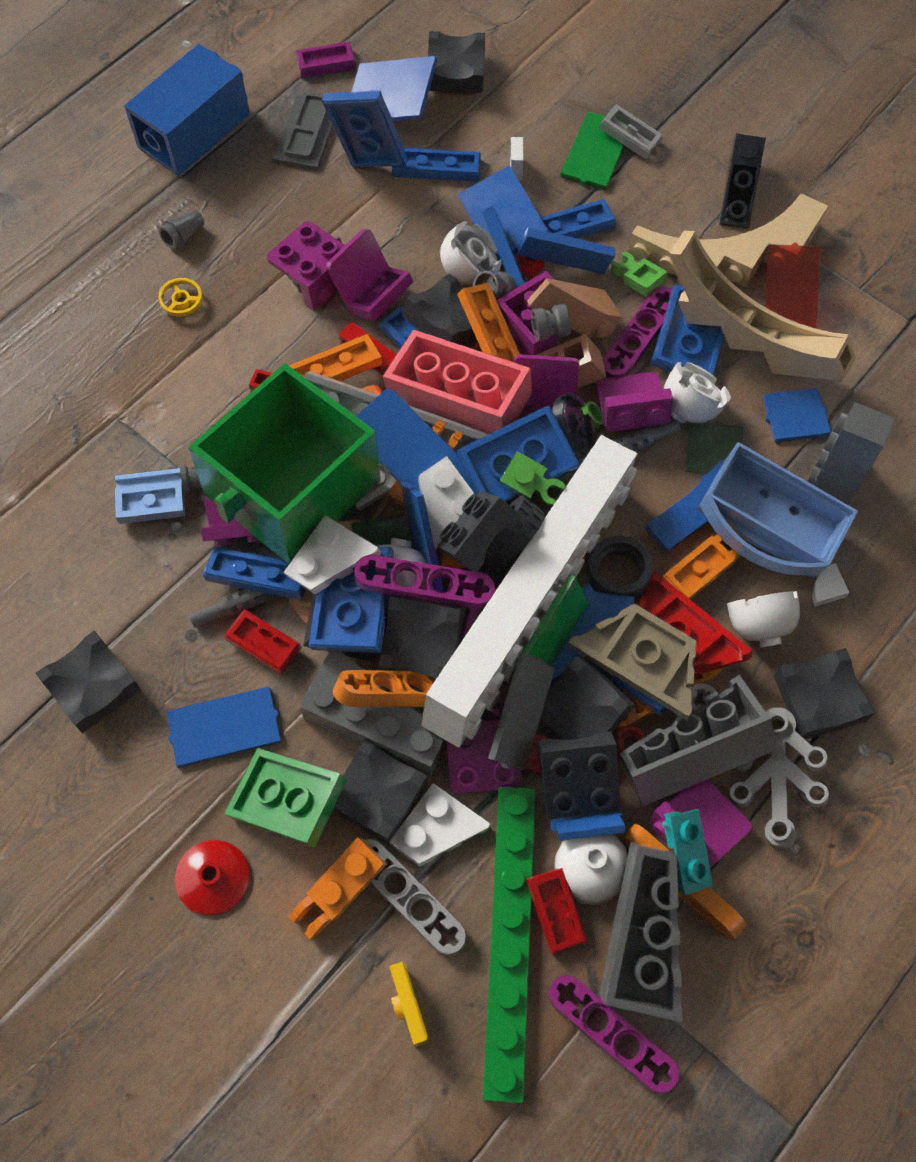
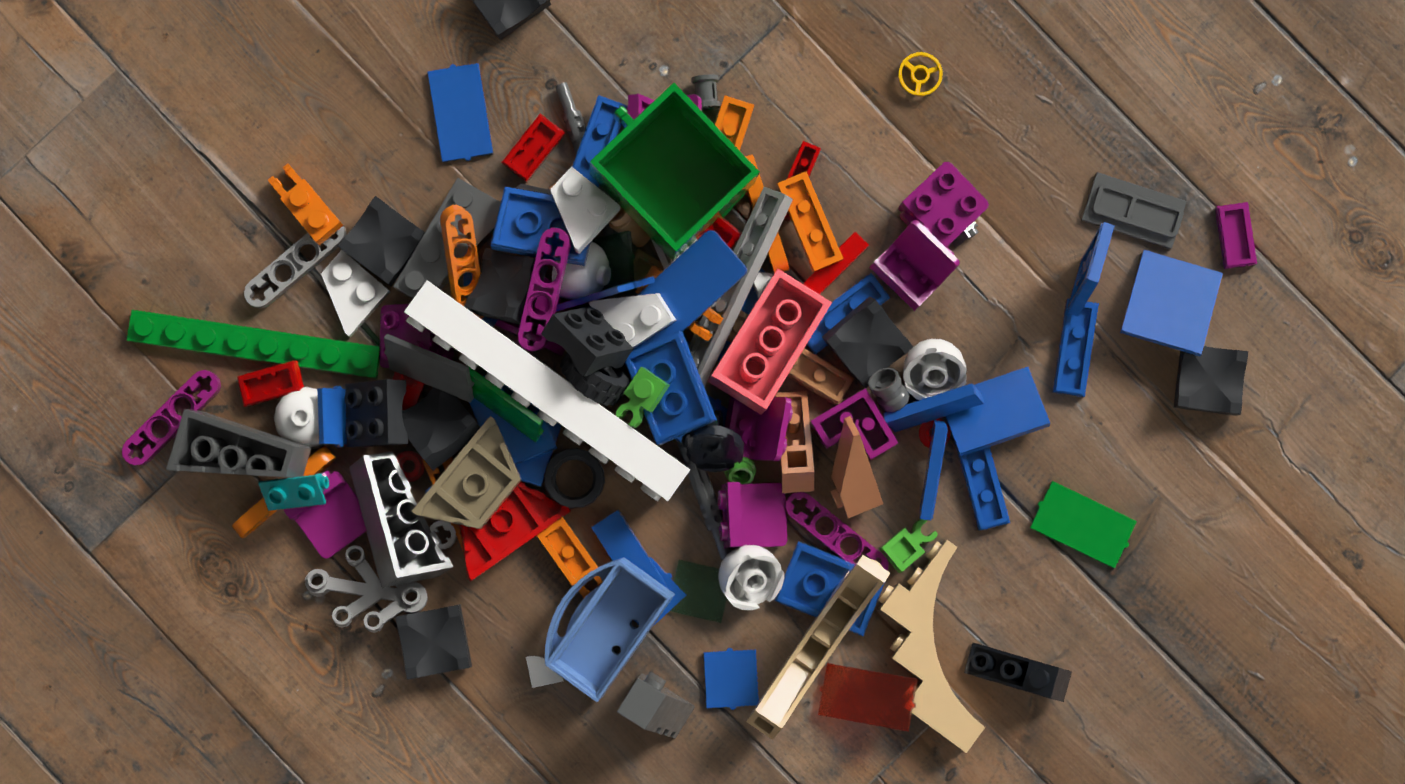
camera: 100 degrees right, 20 degrees up
(149, 496) = (691, 45): light blue plate -> none
(180, 229) = (1005, 75): dark grey cone -> none
(188, 109) = (1154, 83): blue brick -> none
(224, 890) = (340, 112): red dish -> none
(286, 797) = (382, 163): plate -> none
(406, 1004) = (207, 255): yellow plate -> none
(488, 322) = (832, 381): orange plate -> none
(516, 156) = (1068, 433): white tile -> none
(547, 323) = (824, 437): dark grey wheel -> none
(628, 134) = (1116, 542): light grey tile -> none
(765, 617) = (511, 602): white cylinder -> none

